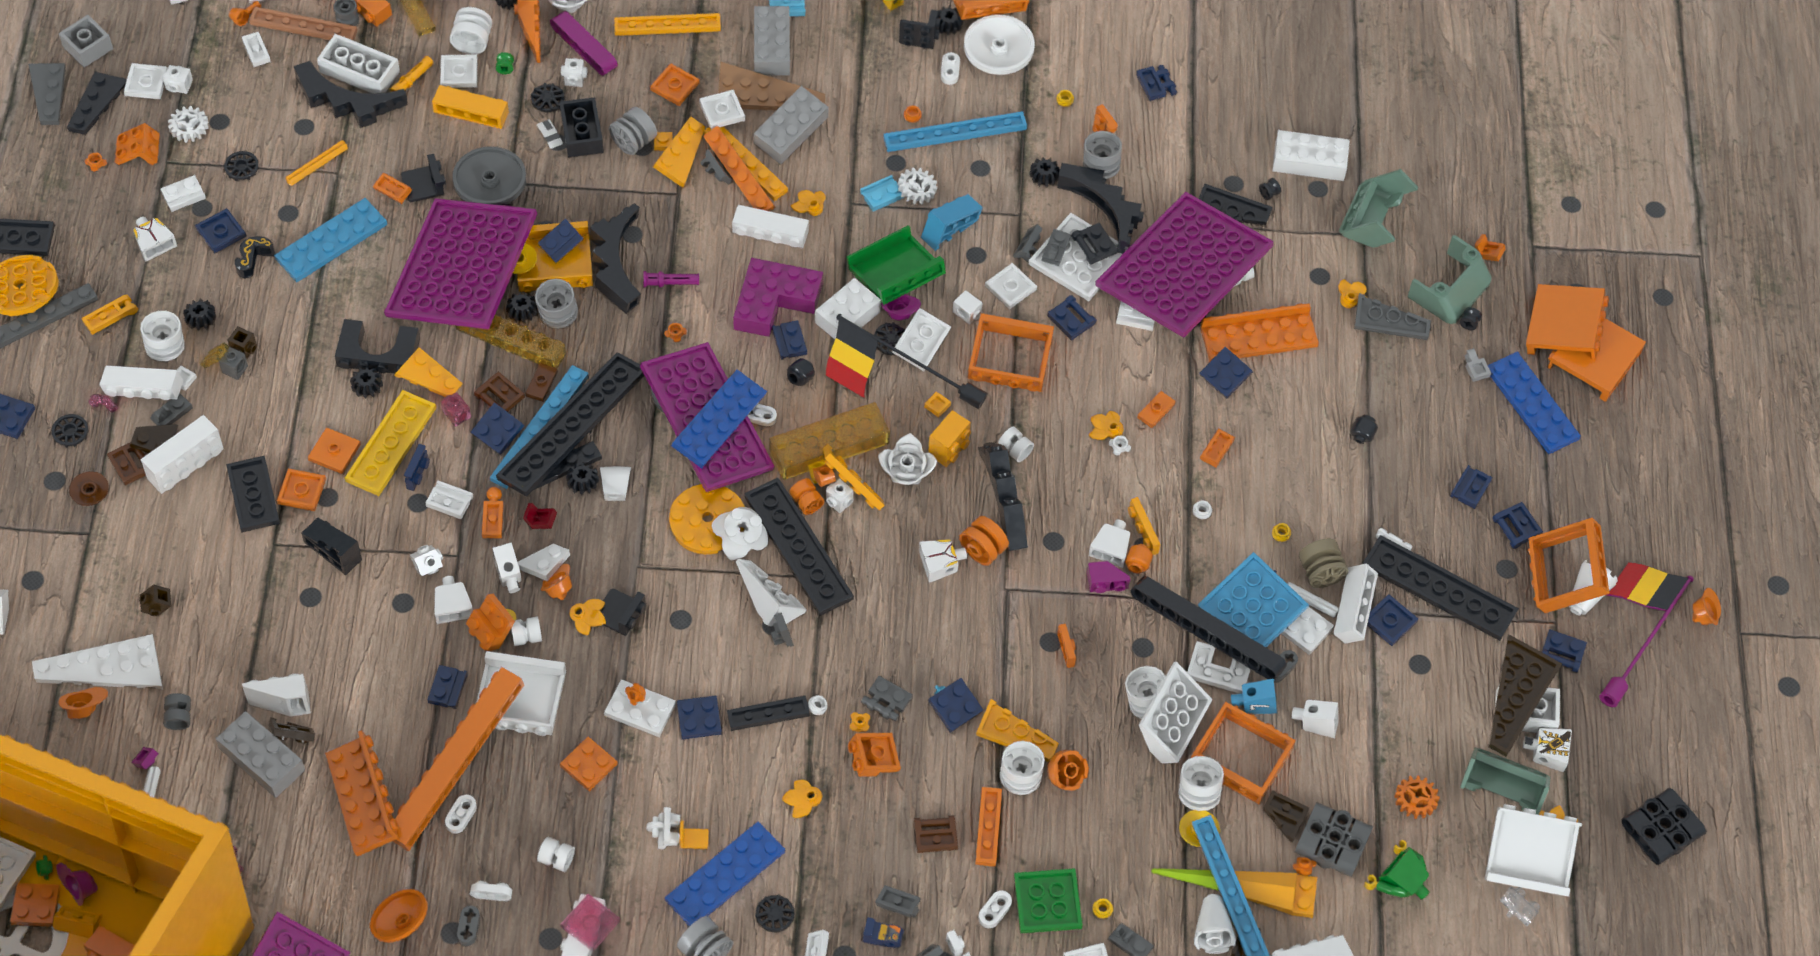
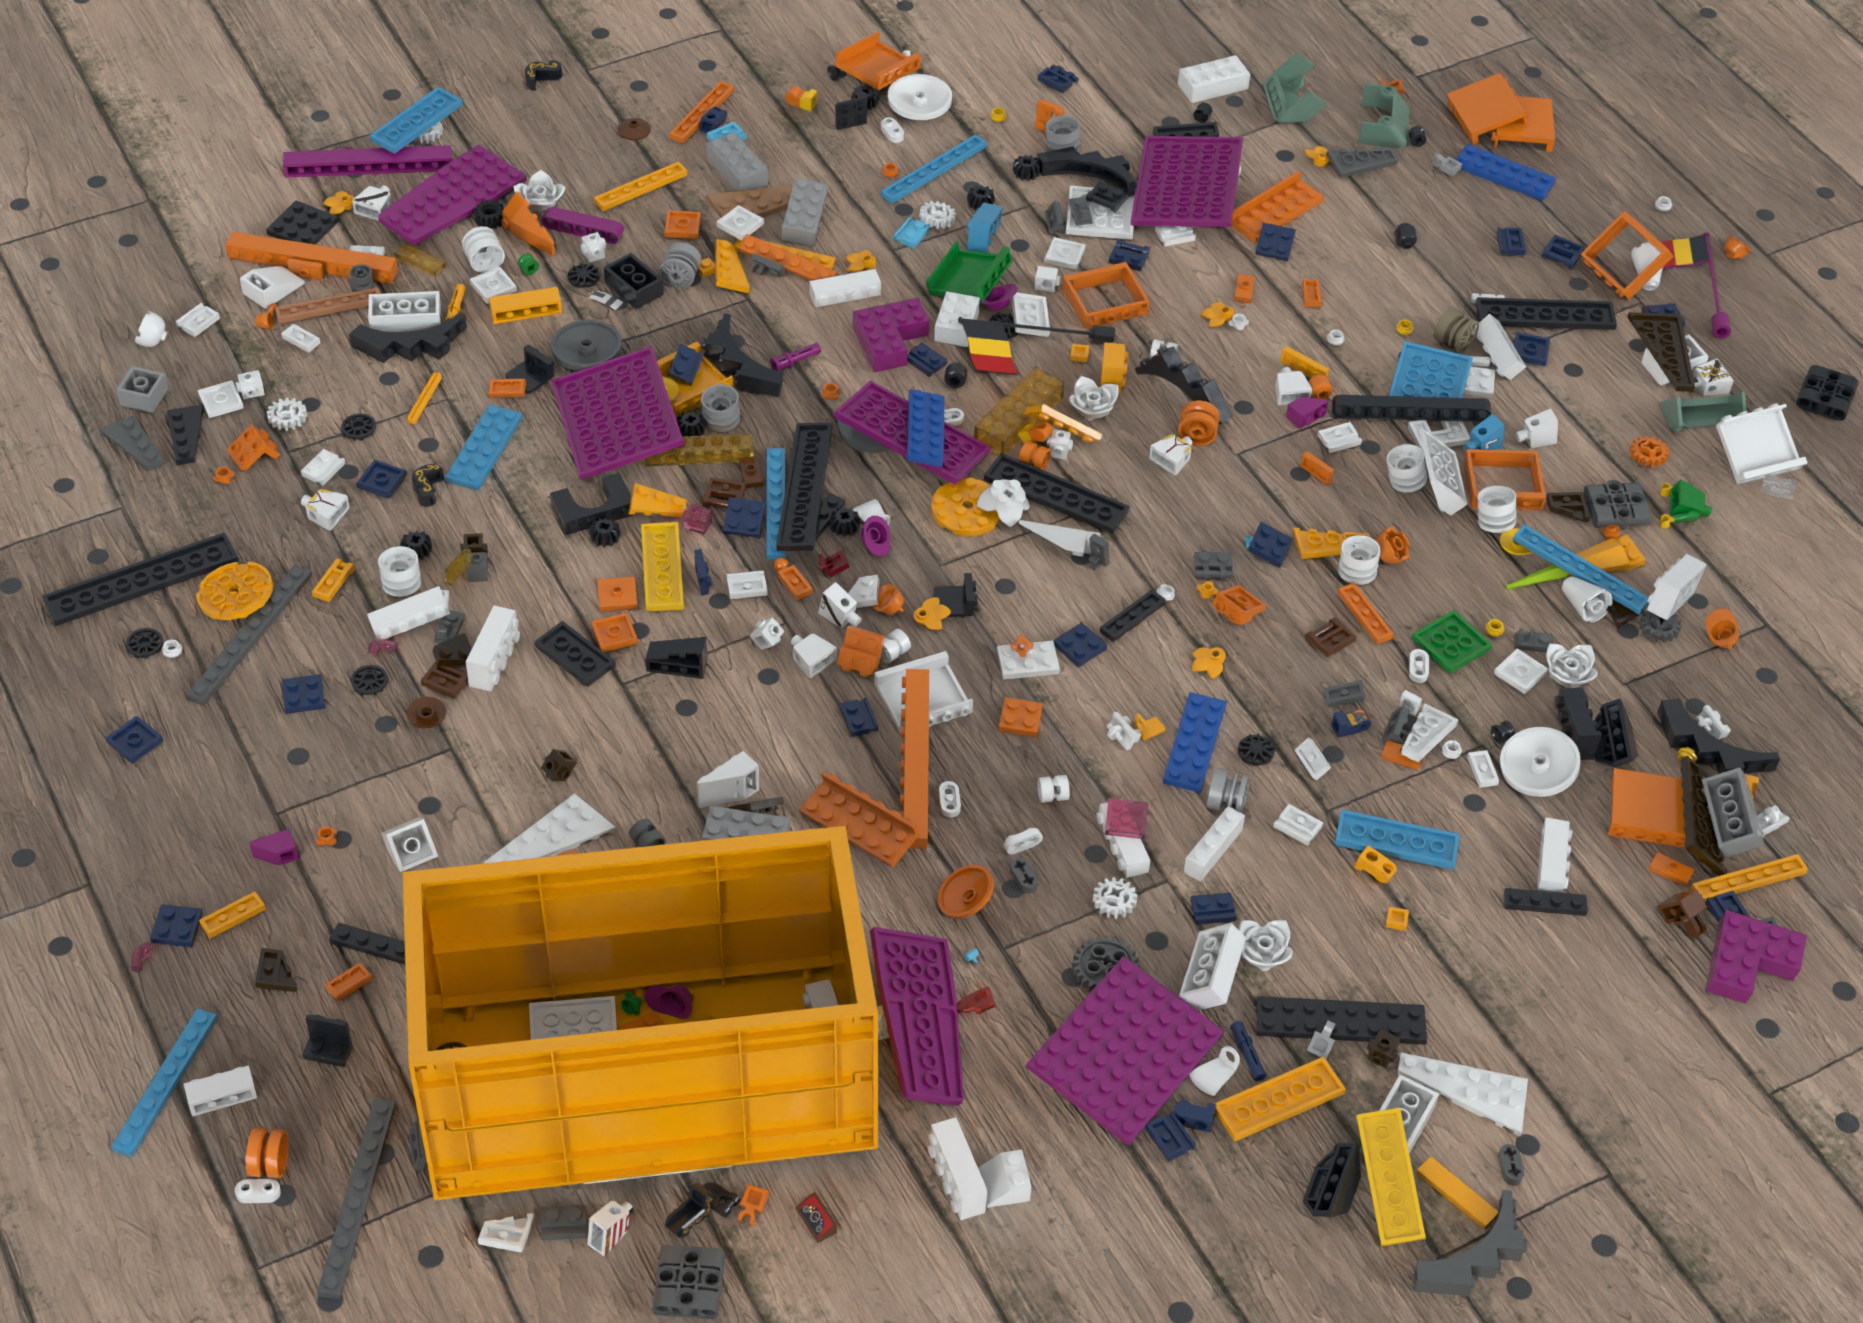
camera: 30 degrees left, 10 degrees down
(595, 510) = (876, 536): none -> magenta piece
(974, 185) = (980, 195): none -> black gear
(1116, 622) = (1339, 437): none -> white plate
(1672, 516) = (1663, 203): none -> white plate

